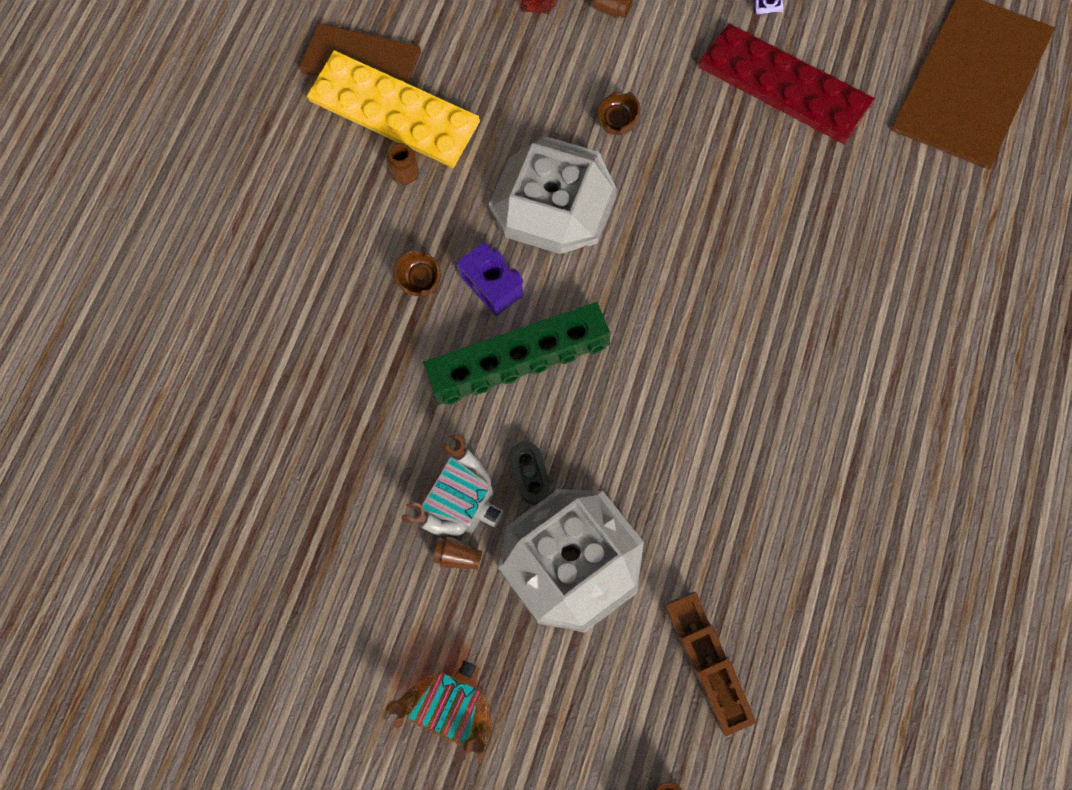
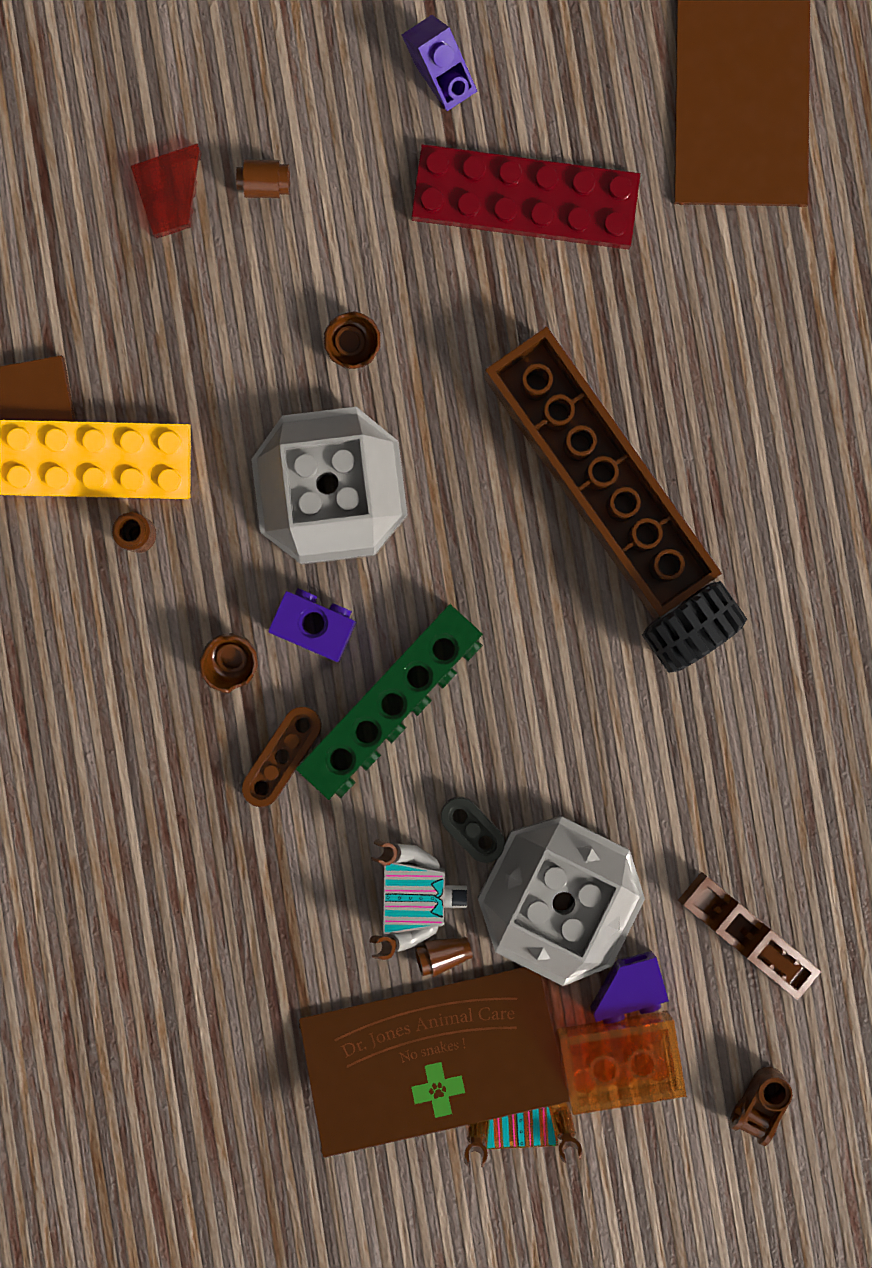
camera: 30 degrees left, 20 degrees up
(403, 358) = (269, 768): none -> reddish brown plate
(404, 630) = (432, 1061): none -> reddish brown piece
(552, 705) = (621, 1062): none -> clear orange brick
(590, 652) = (630, 986): none -> dark purple slope
(754, 271) = (601, 473): none -> reddish brown brick
(774, 395) = (695, 627): none -> black tyre

